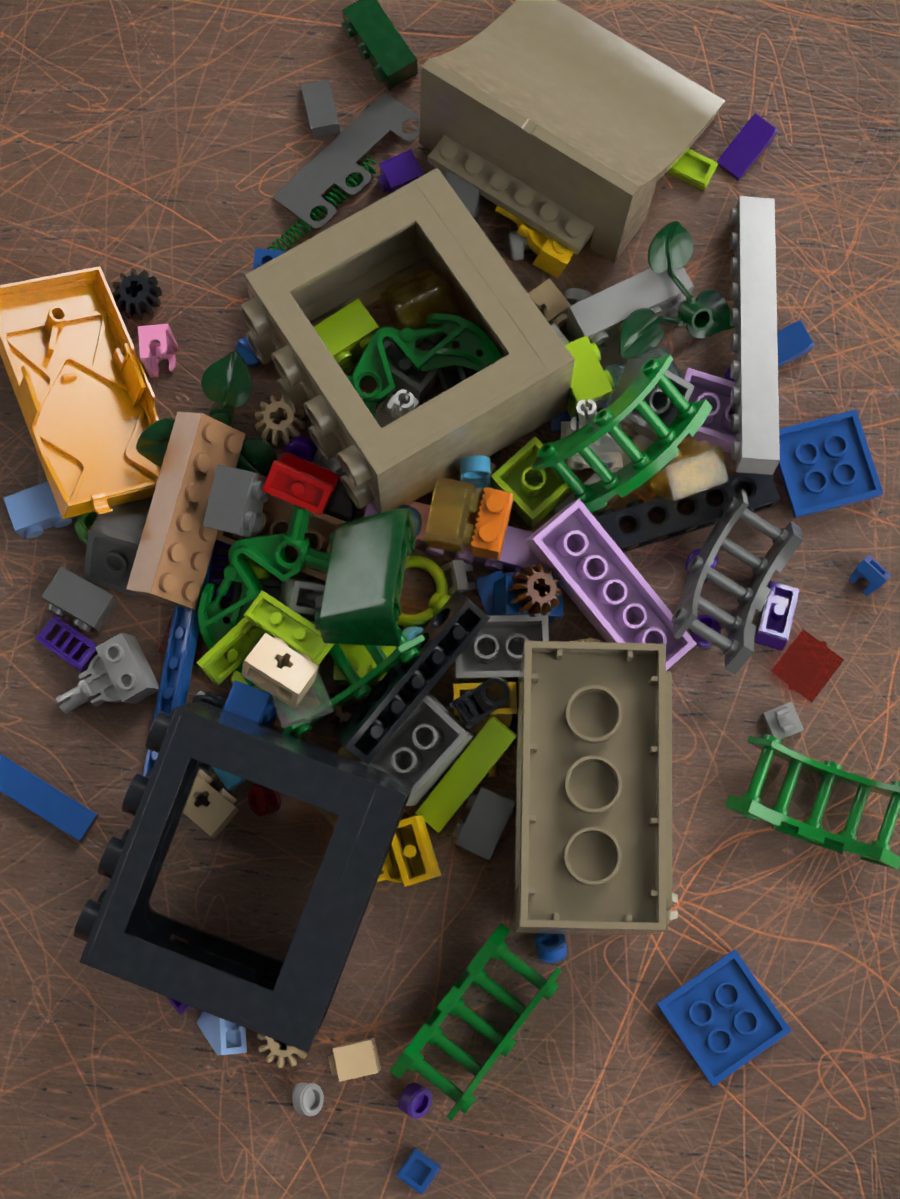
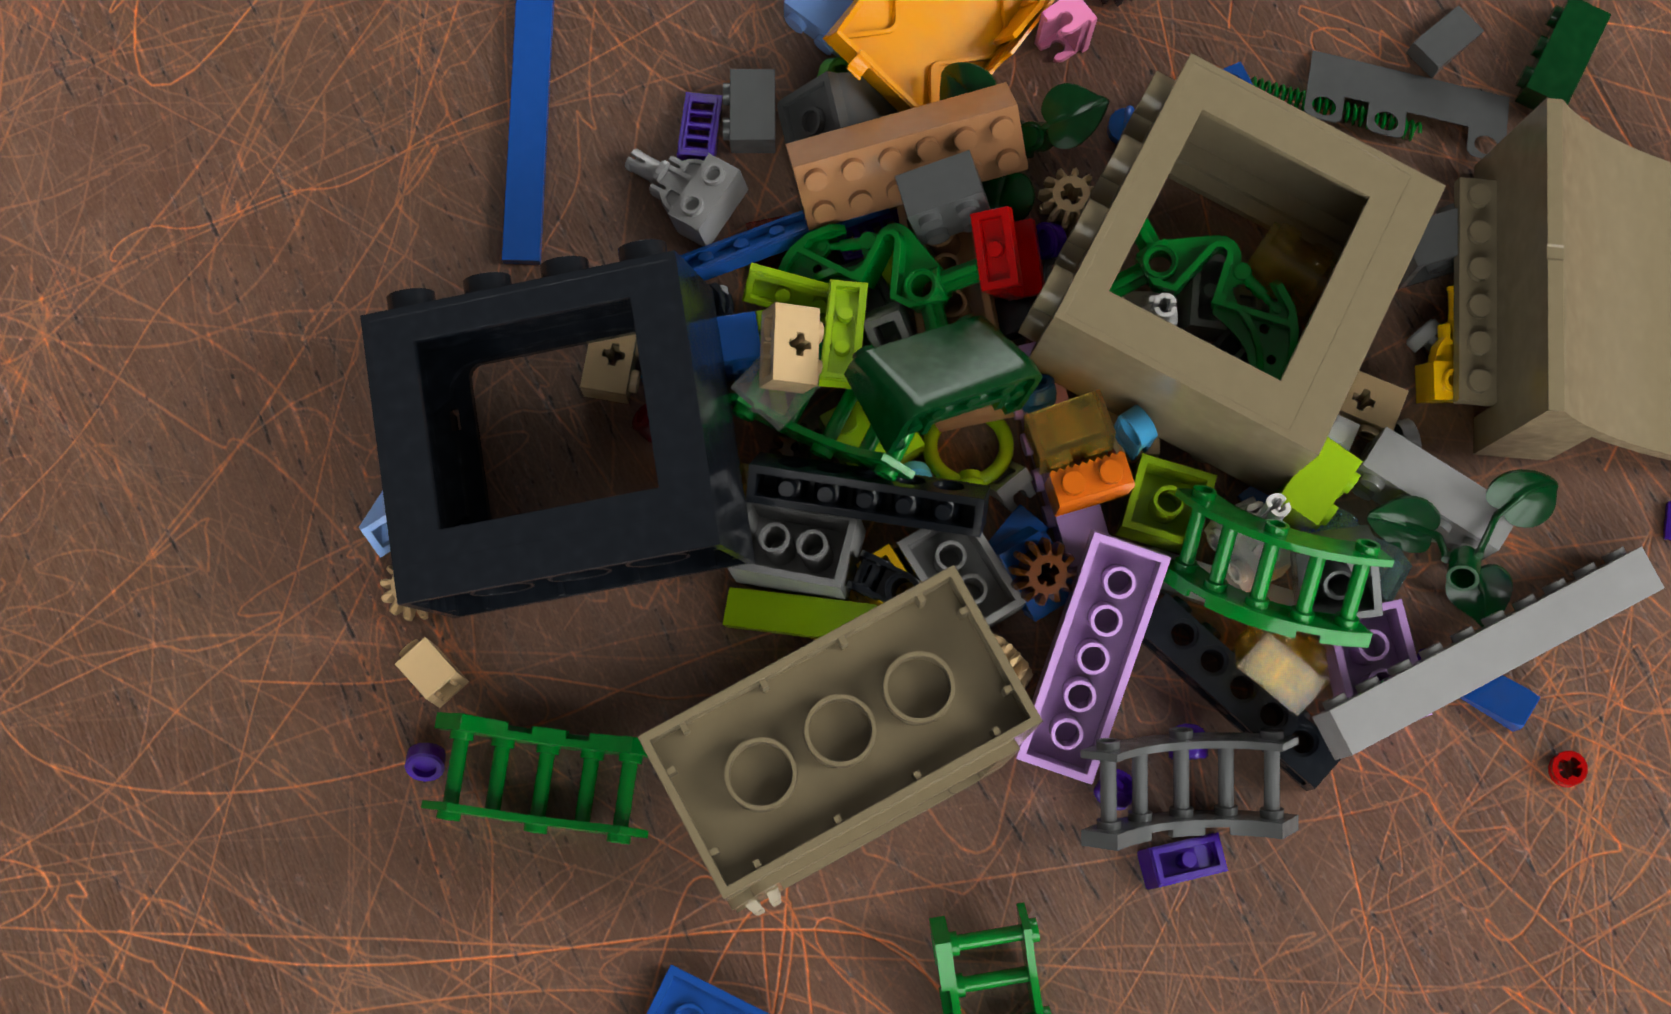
camera: 55 degrees right, 0 degrees up
(307, 1099) = (365, 647): light grey tile -> none
(347, 334) = (1199, 207): lime brick -> none
(398, 171) = (1428, 159): dark purple brick -> none
(410, 854) = (681, 606): yellow brick -> none
(418, 1171) = (355, 807): blue tile -> none
(484, 823) = (741, 659): dark grey brick -> none
(550, 947) = (664, 816): blue tile -> none
(694, 169) = (1642, 480): lime tile -> none
(783, 721) = (1065, 934): light grey tile -> none
(807, 665) = (1146, 927): clear red piece -> none
(827, 464) = (1390, 820): blue plate -> none
(857, 322) = (1563, 757): none -> red bush
(872, 572) = (1297, 941): blue tile -> none

